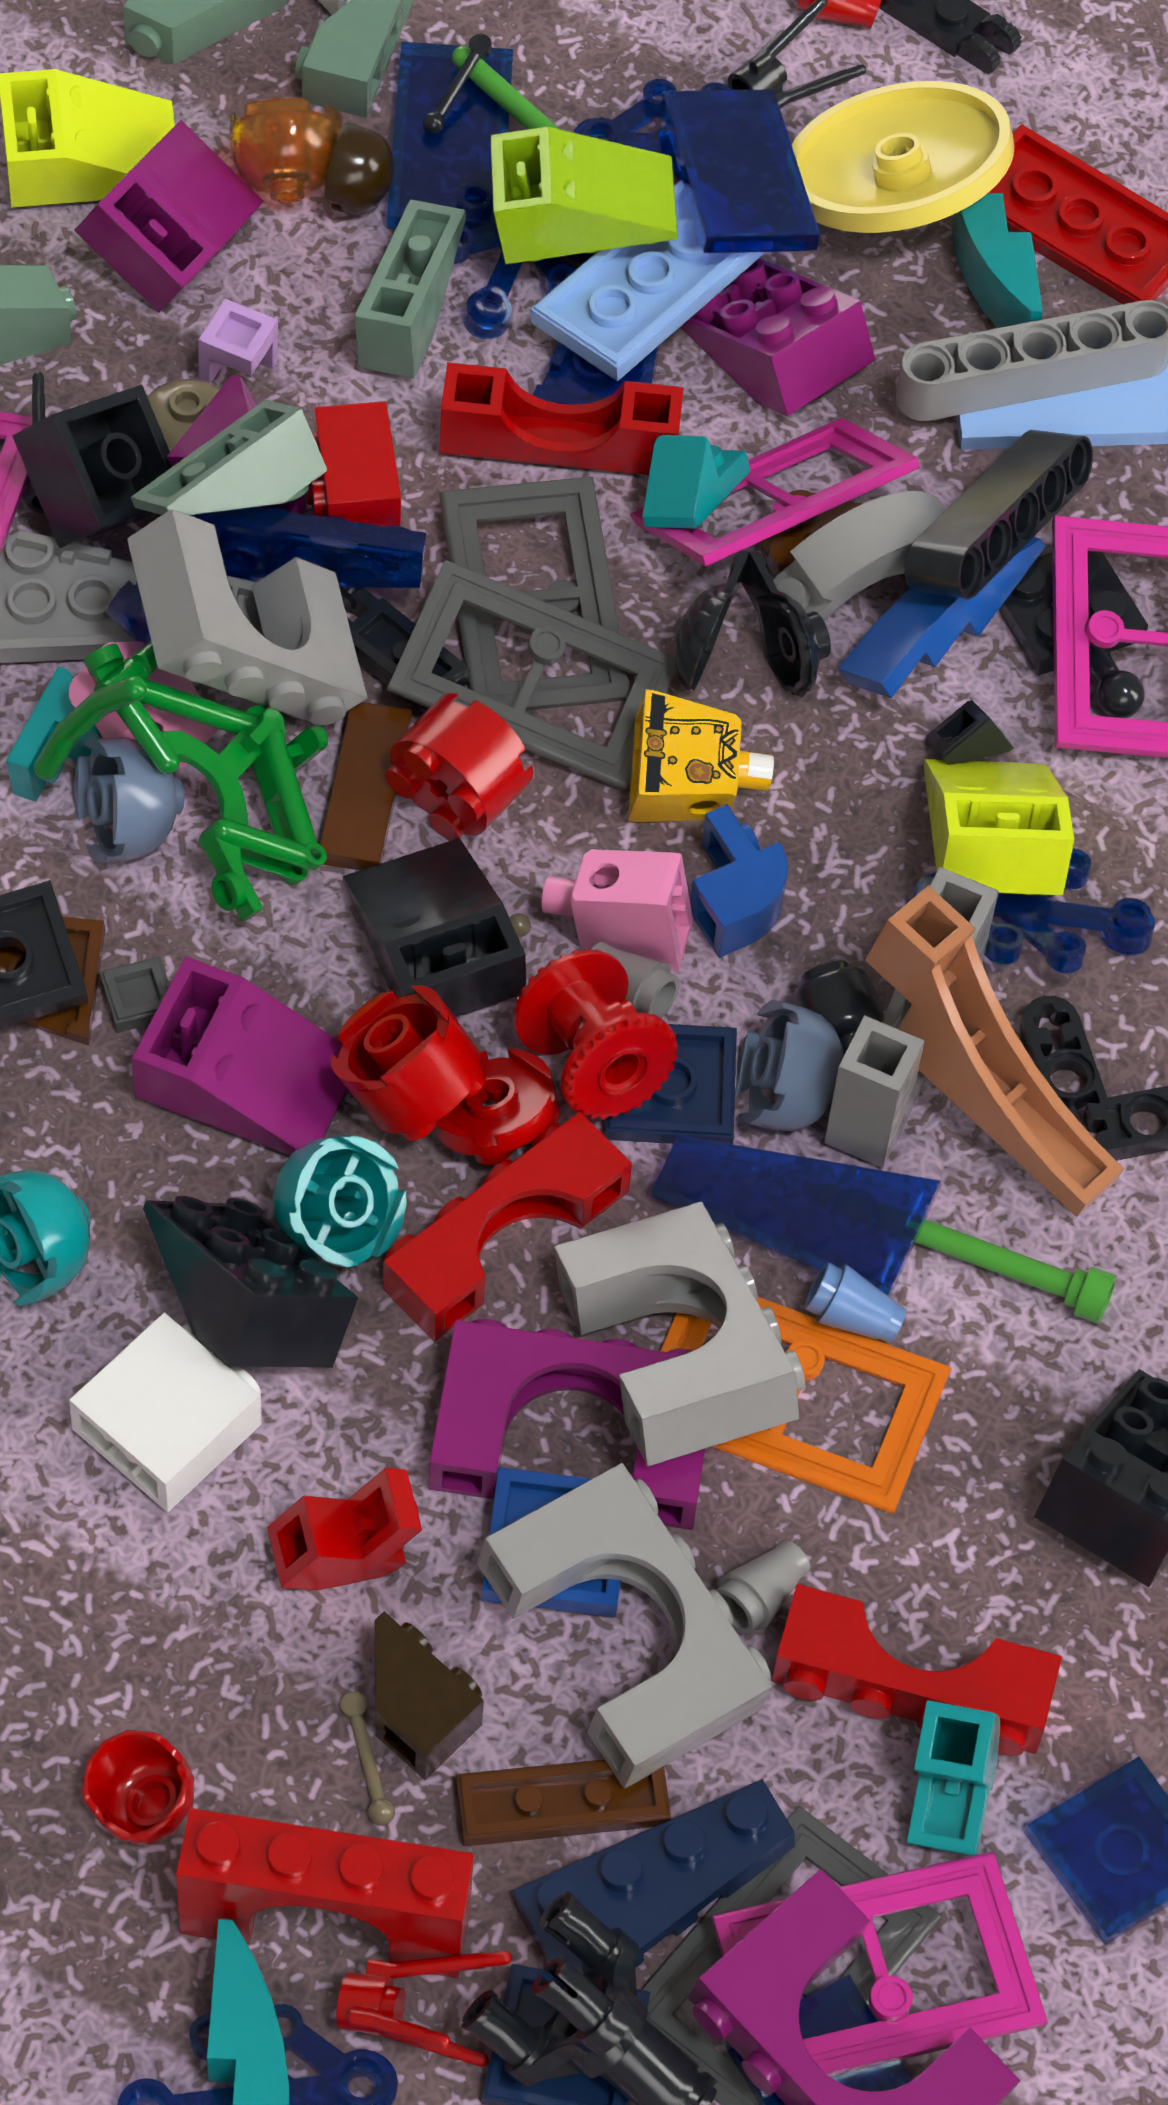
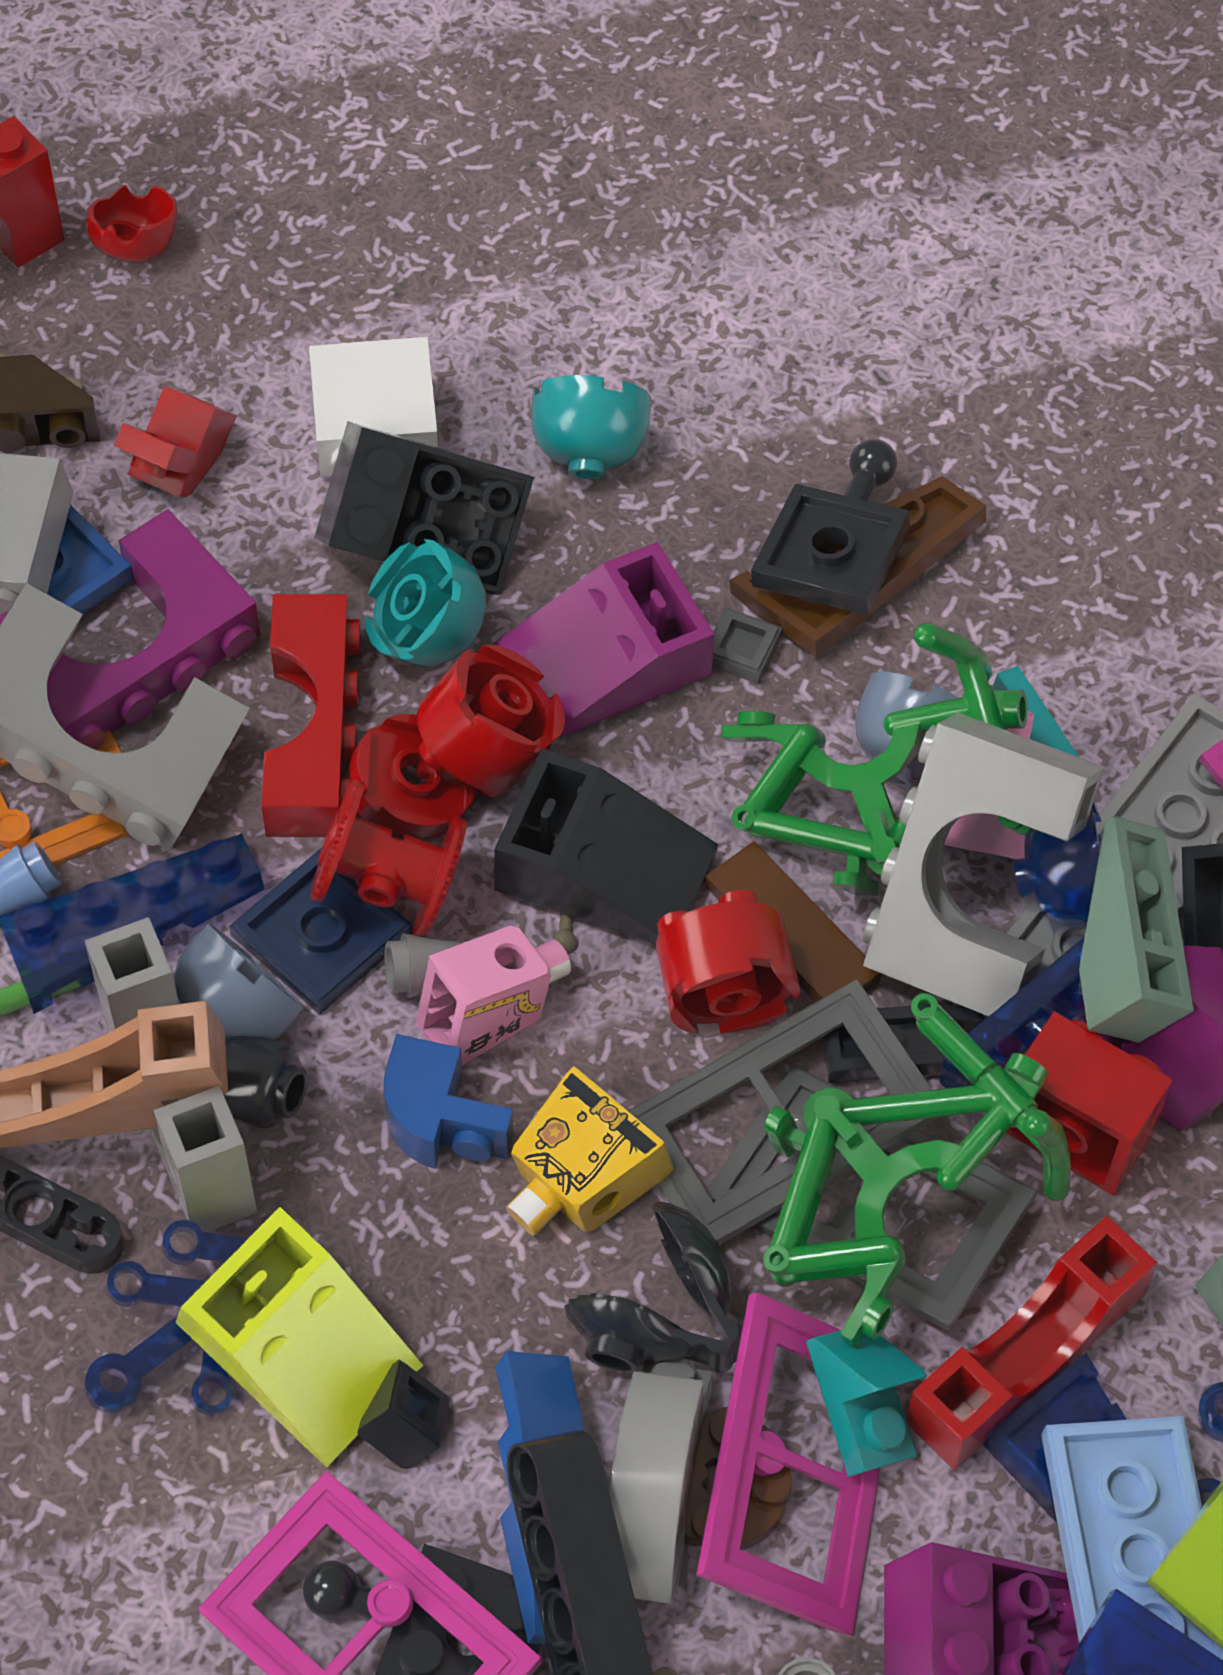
camera: 135 degrees right, 0 degrees up
(541, 581) = (836, 1124): none -> green piece

